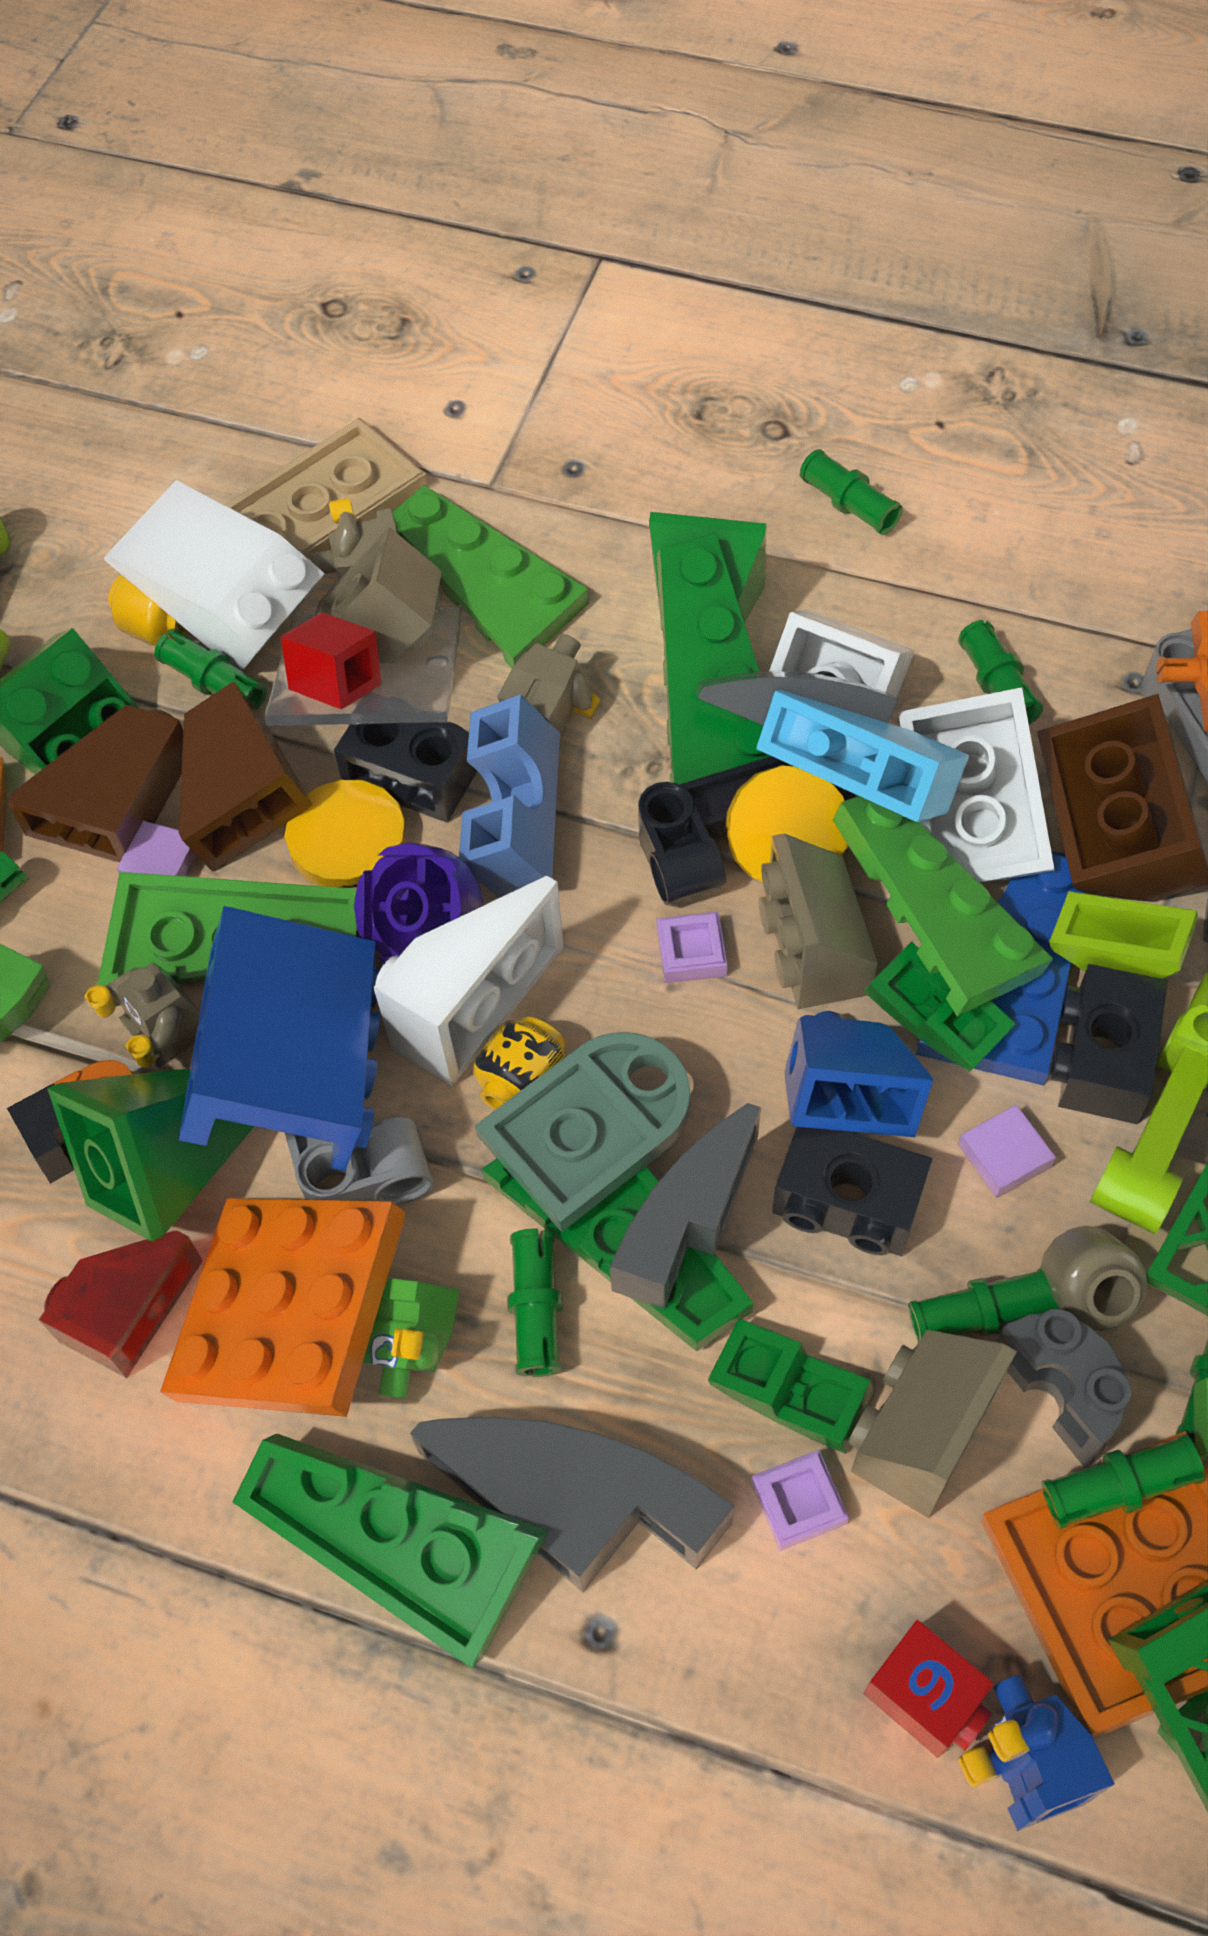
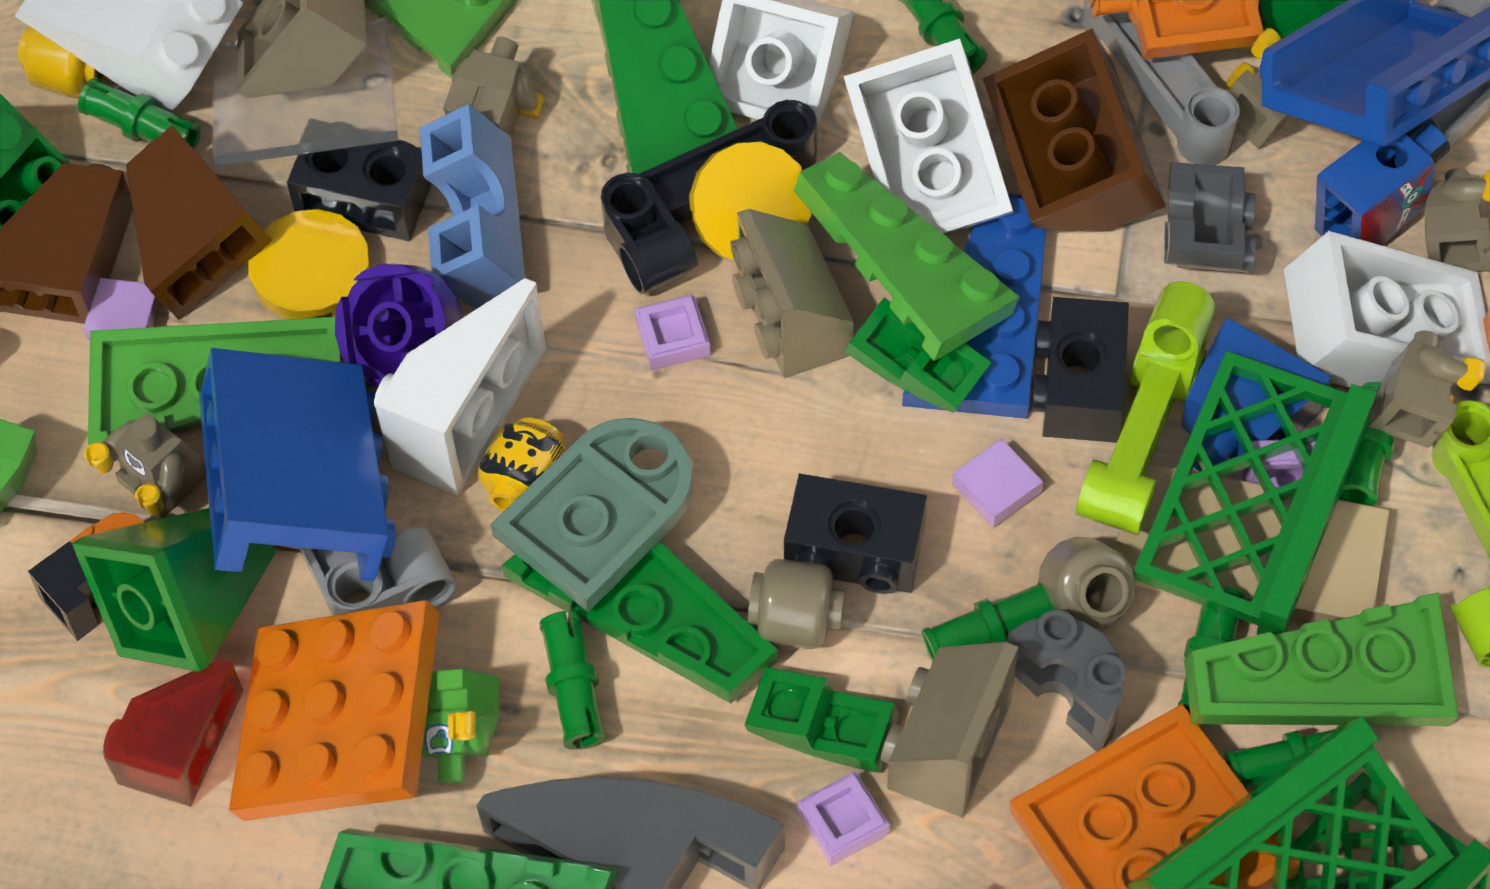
camera: 10 degrees left, 0 degrees up
(331, 660) = (271, 92): red brick -> none
(685, 1210) = (702, 572): dark grey slope -> none
(752, 693) = (748, 78): dark grey slope -> none
(778, 1255) = (795, 603): none -> dark tan head
(854, 1077) = (844, 431): blue torso -> none
(864, 755) = (815, 123): medium azure slope -> none
(1123, 934) = (1082, 265): lime slope -> none
(1123, 1481) = (1128, 751): green pin -> none

